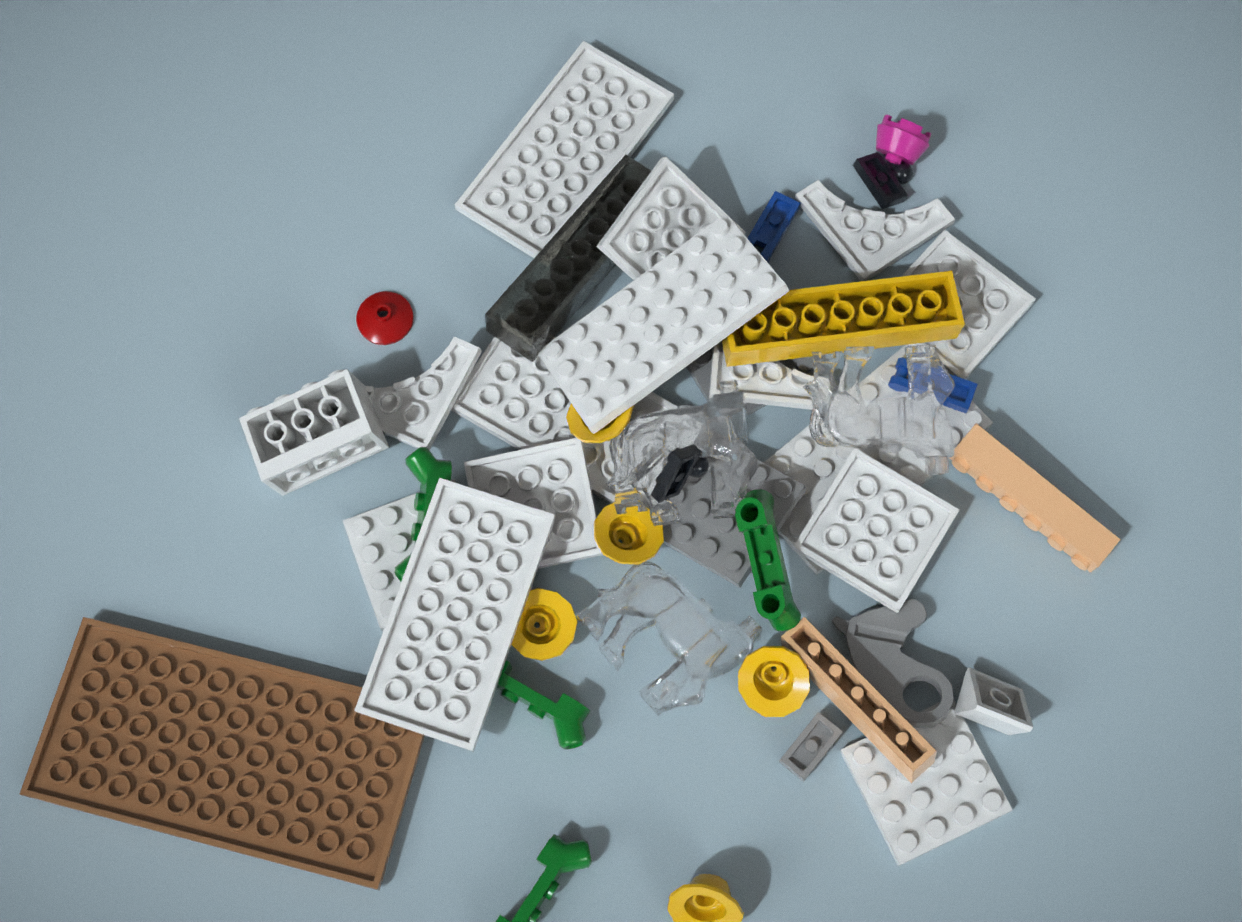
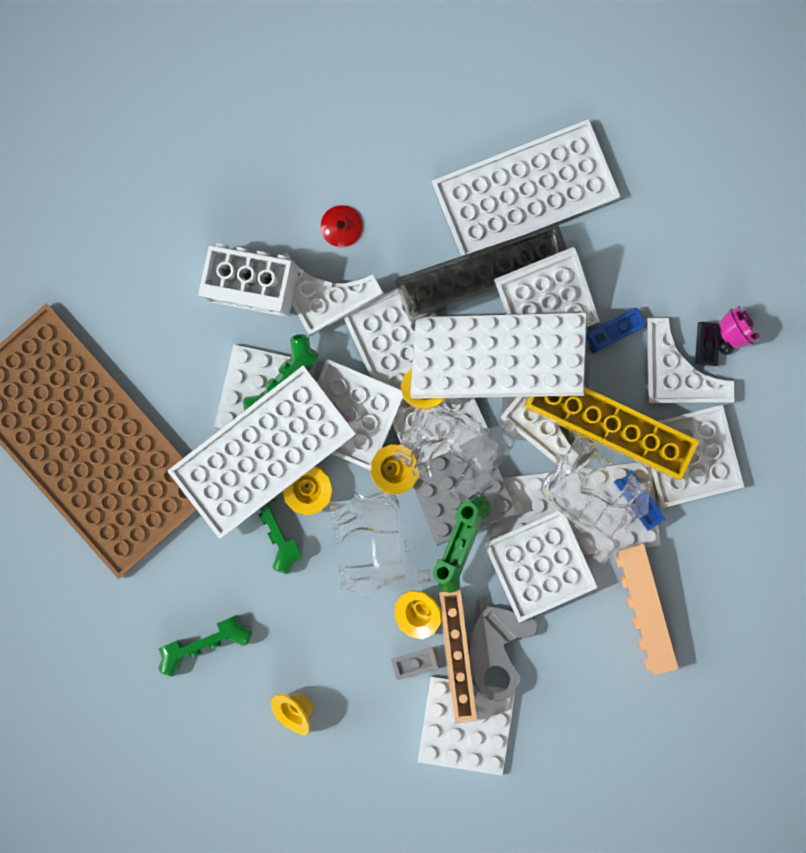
camera: 30 degrees right, 15 degrees up
(677, 470) = (443, 458): black plate -> none
(993, 703) = (535, 710): white slope -> none

